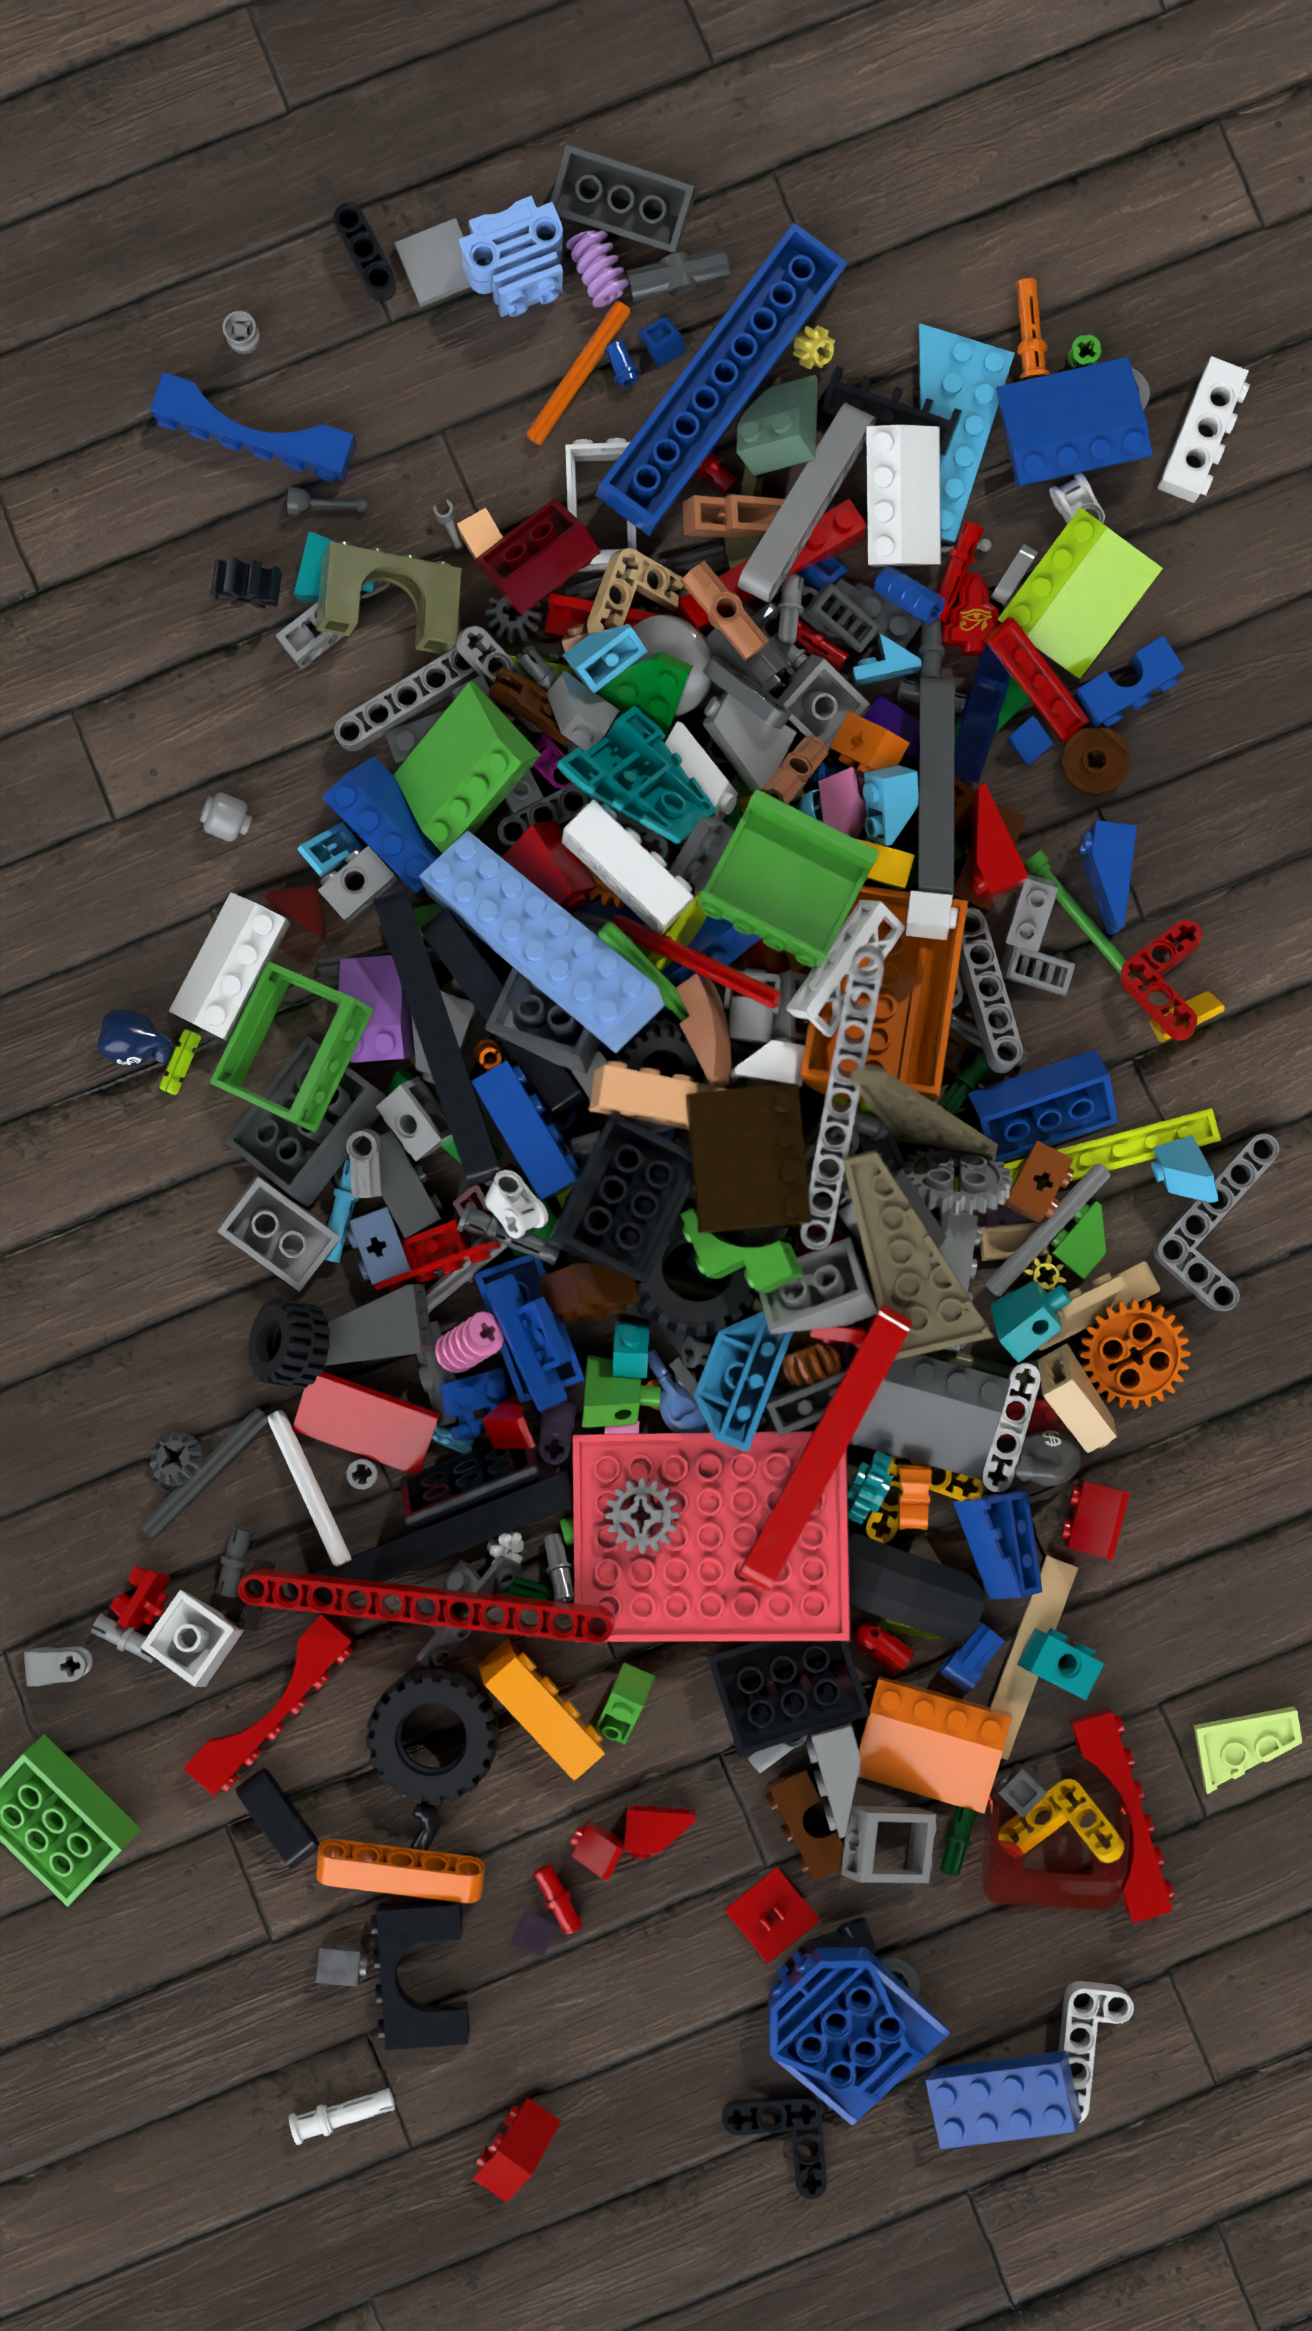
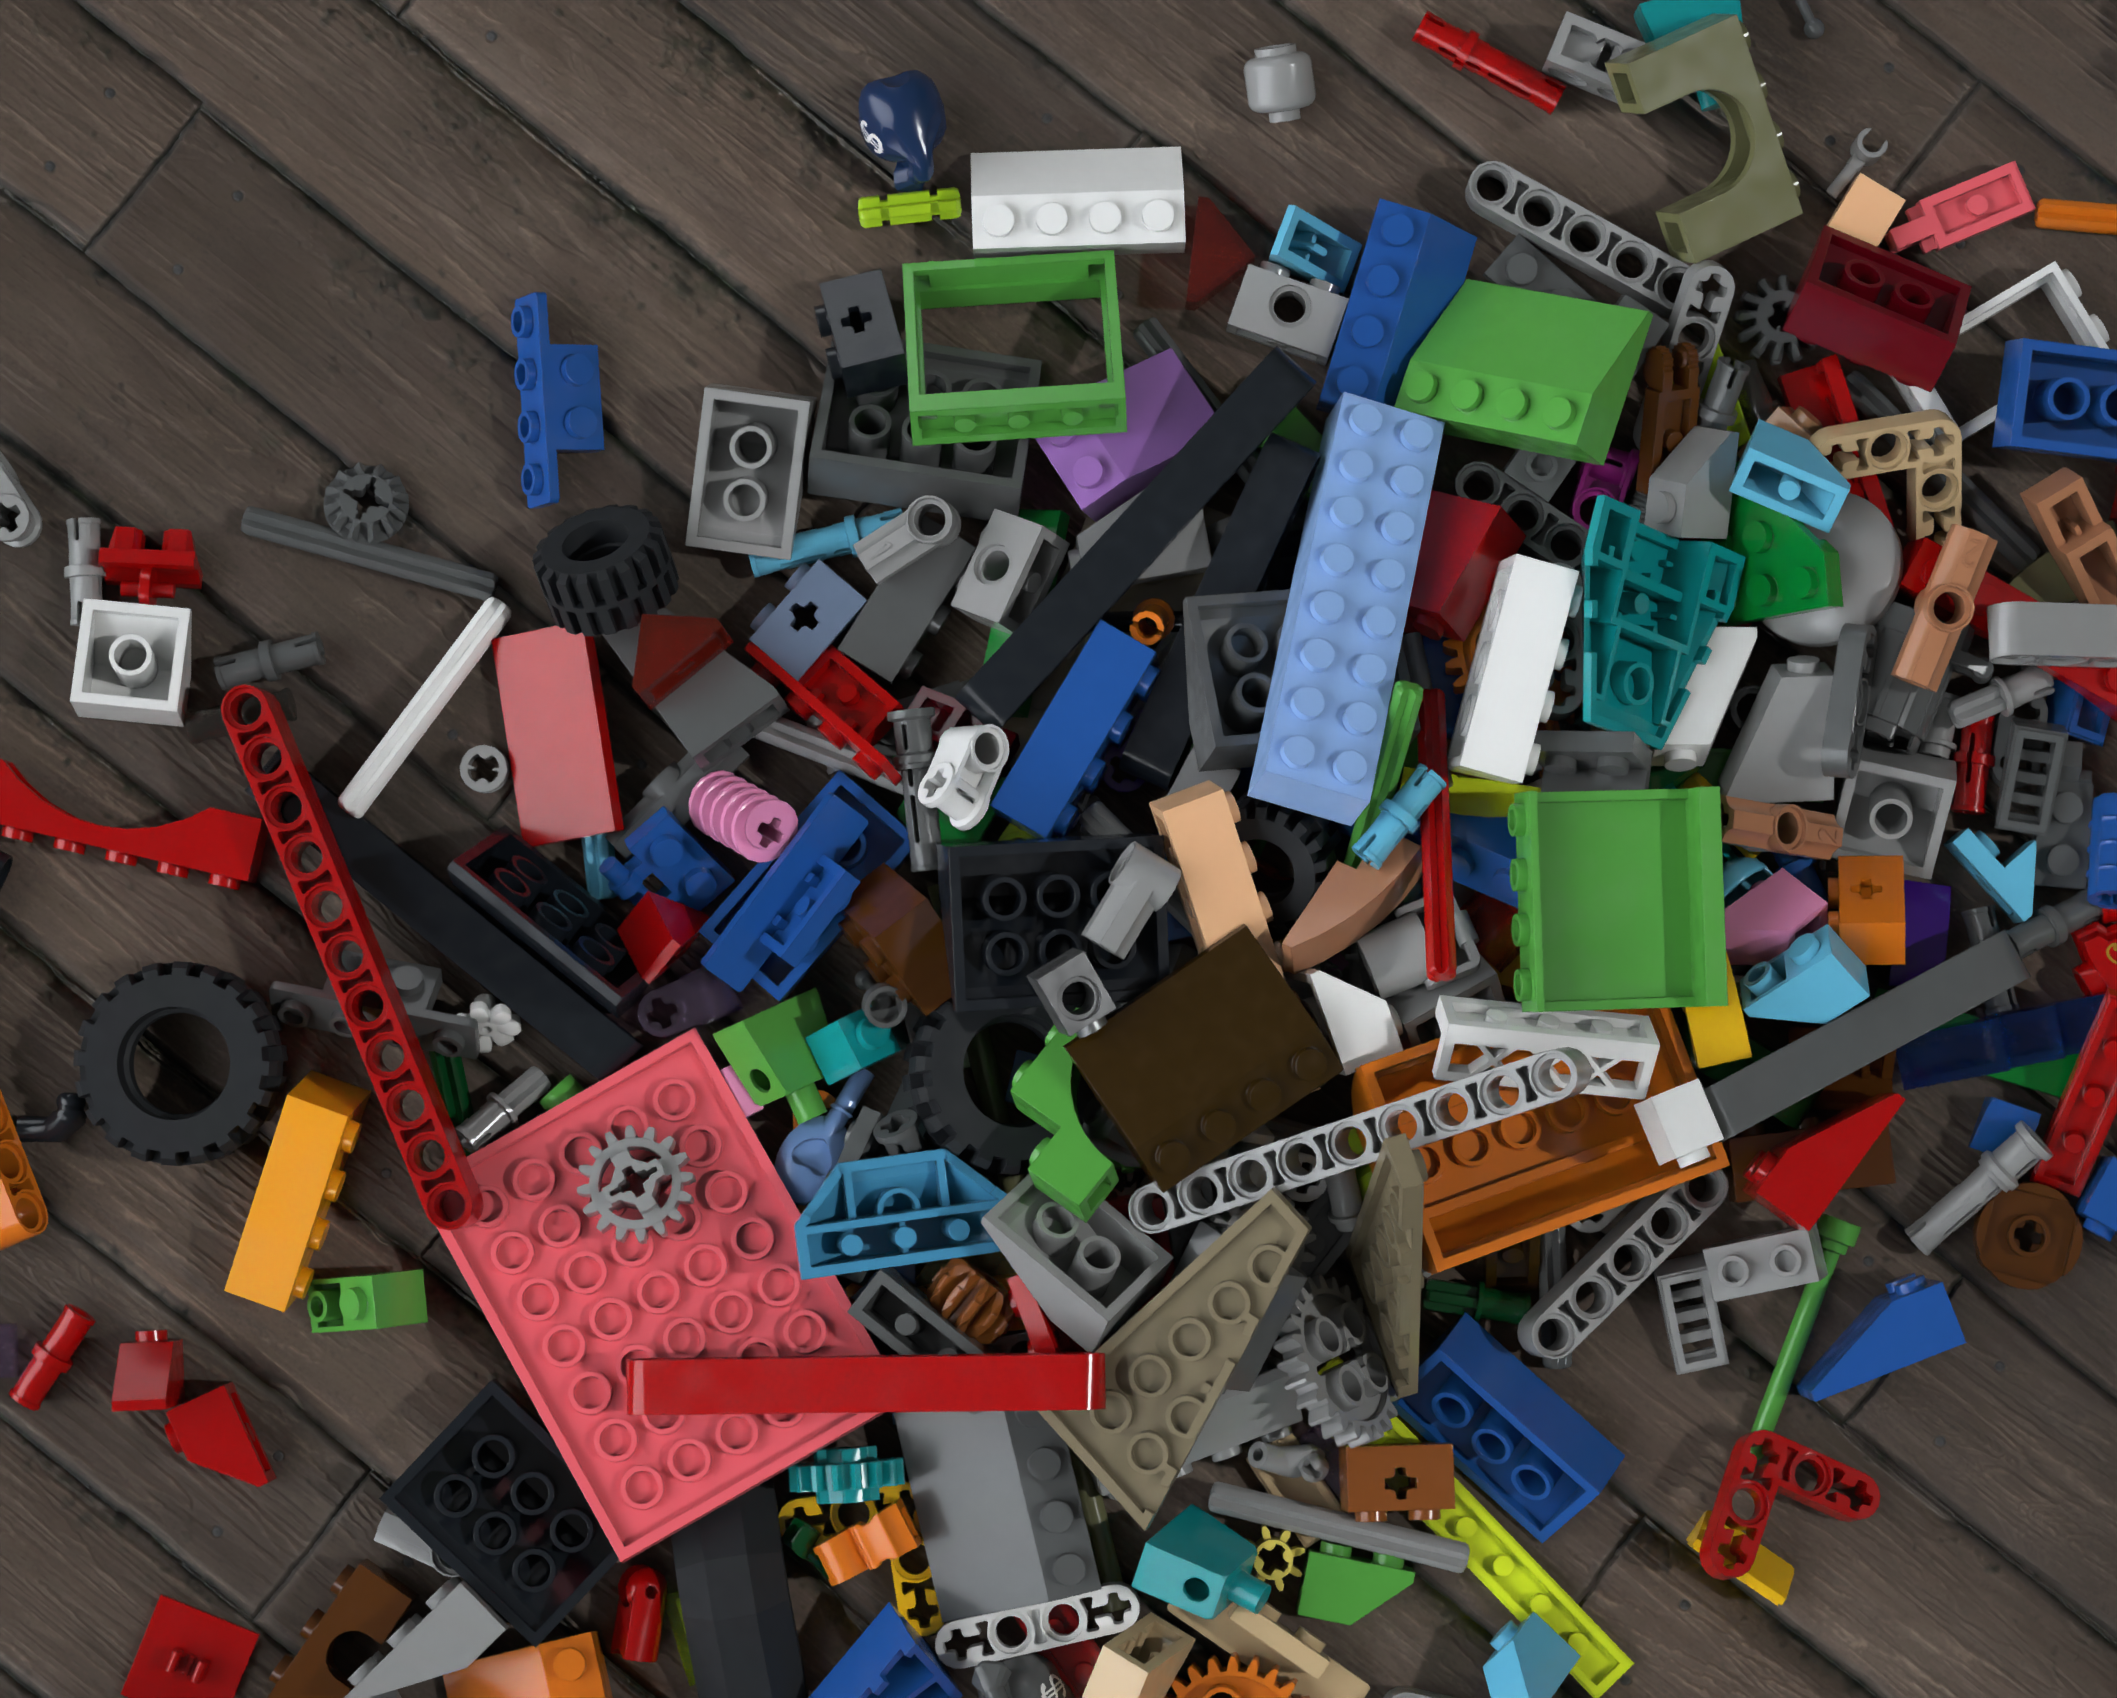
camera: 60 degrees right, 0 degrees up
(176, 1318) = (557, 399): none -> blue bracket
(236, 1126) = (863, 333): none -> black brick
(274, 698) = (1479, 57): none -> red pin
(356, 1330) = (673, 651): none -> clear red slope
(509, 479) = (1963, 211): none -> coral hinge
(616, 1324) = (883, 1011): none -> dark grey hinge
(633, 1142) = (1138, 886): none -> light grey piece
(660, 1220) = (1053, 979): none -> flat silver brick
(673, 975) = (1399, 816): none -> medium azure pin
(890, 1532) = (801, 1539): none -> dark green hand
(996, 1236) = (1290, 1461): none -> light grey arm
(1051, 757) = (1996, 1172): none -> light grey pin

